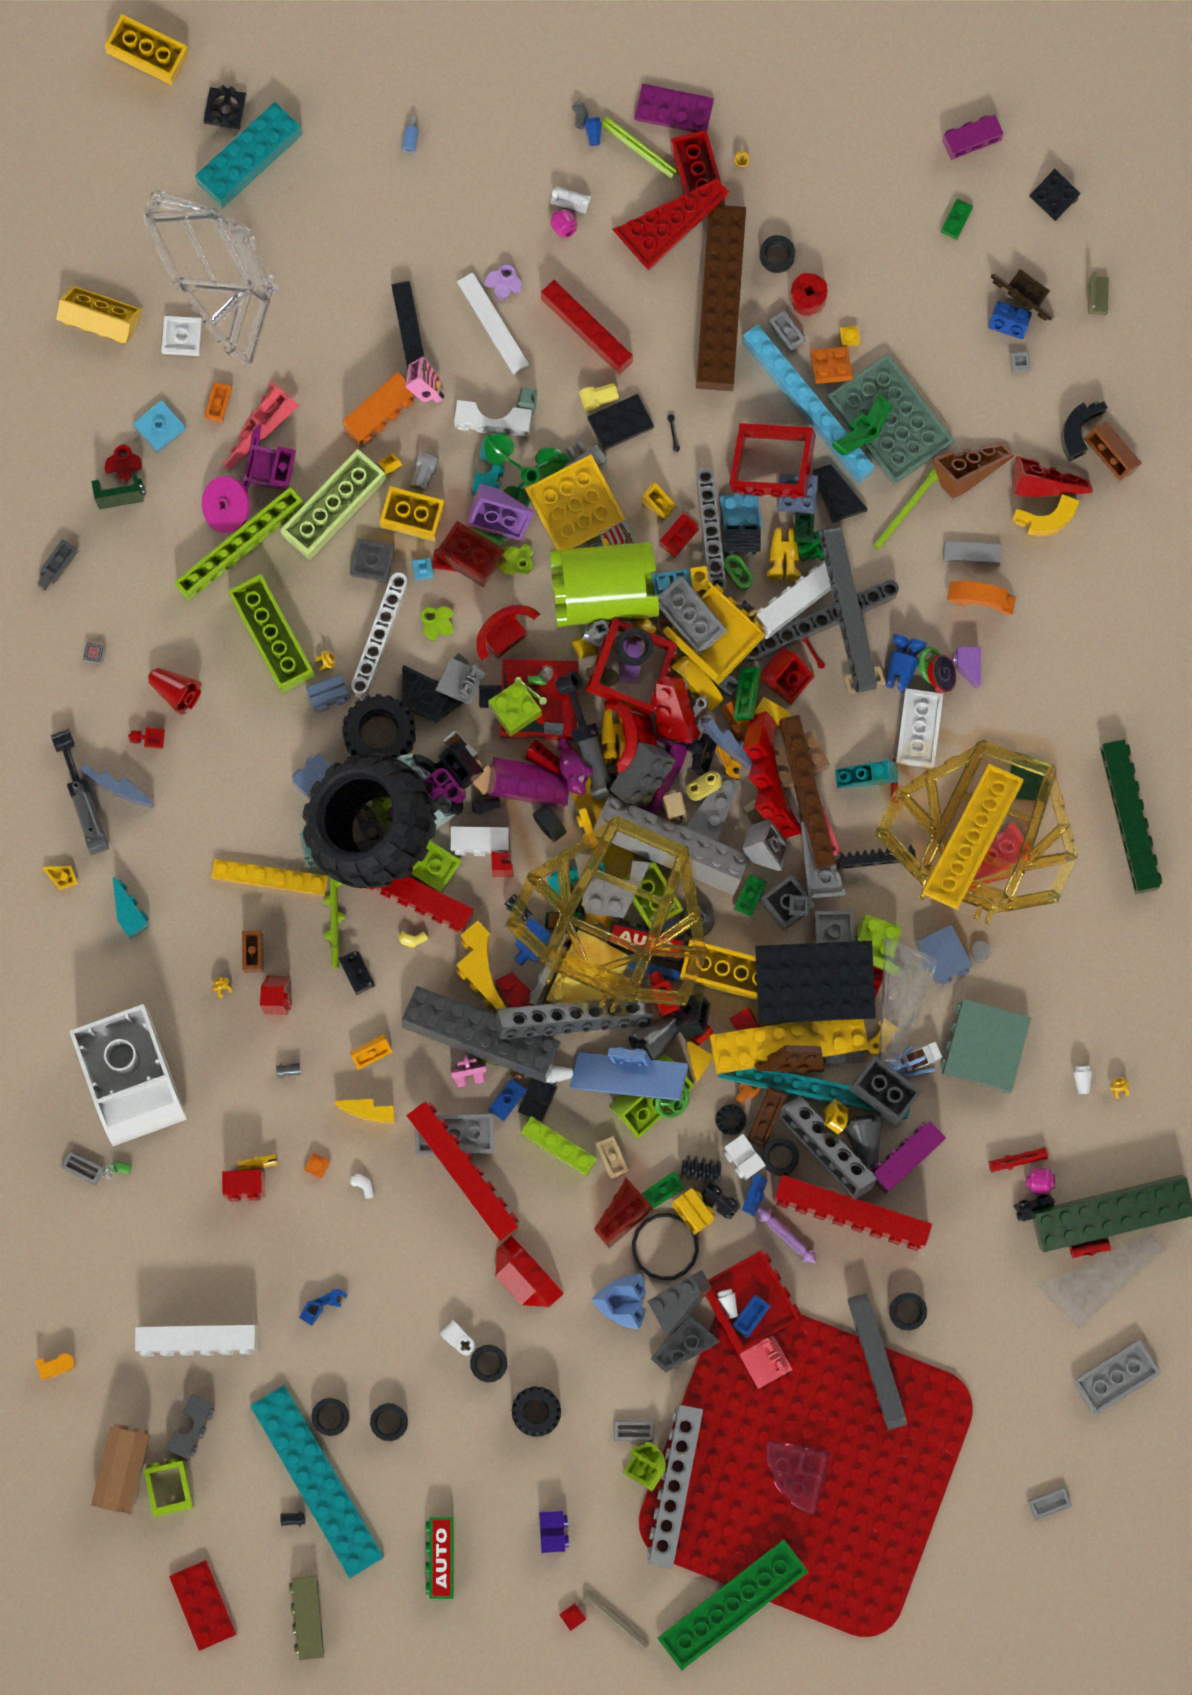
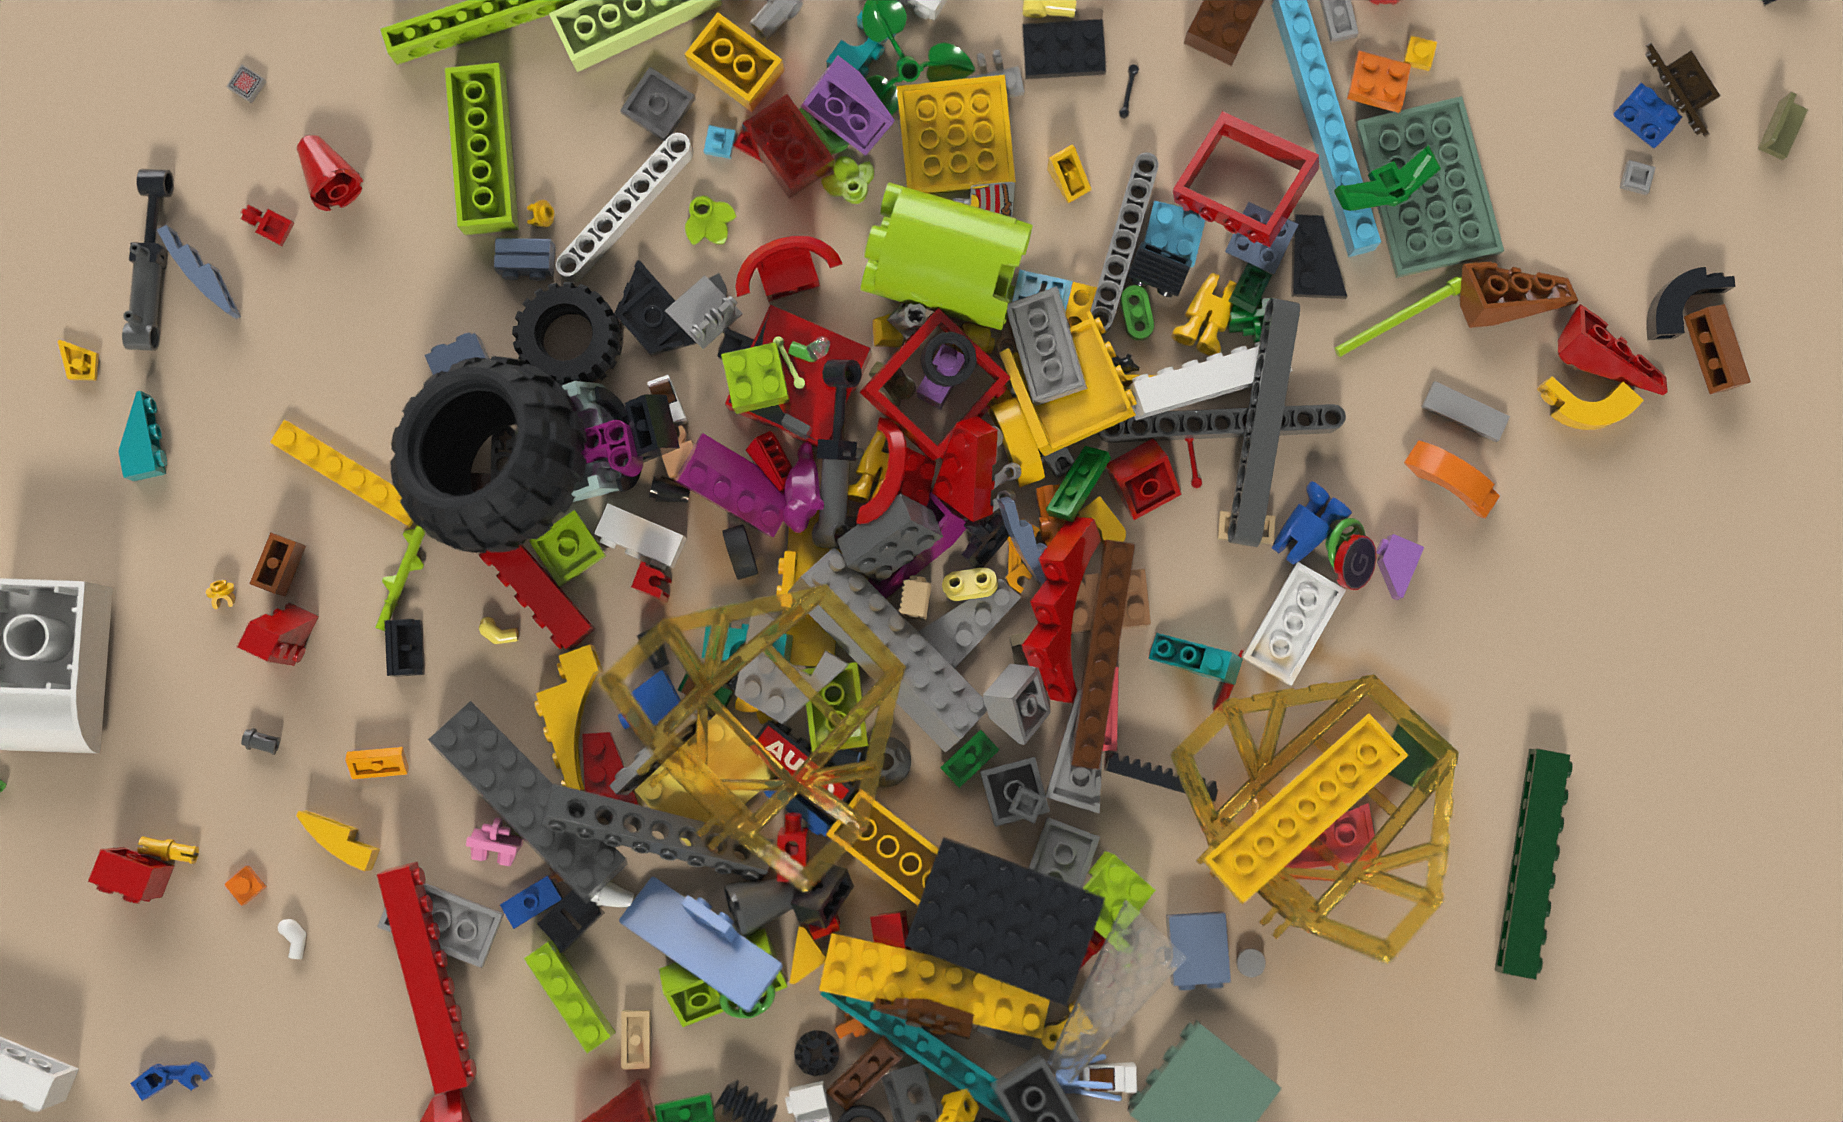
camera: 30 degrees right, 5 degrees up
(678, 535) = (1077, 231): red hinge -> none

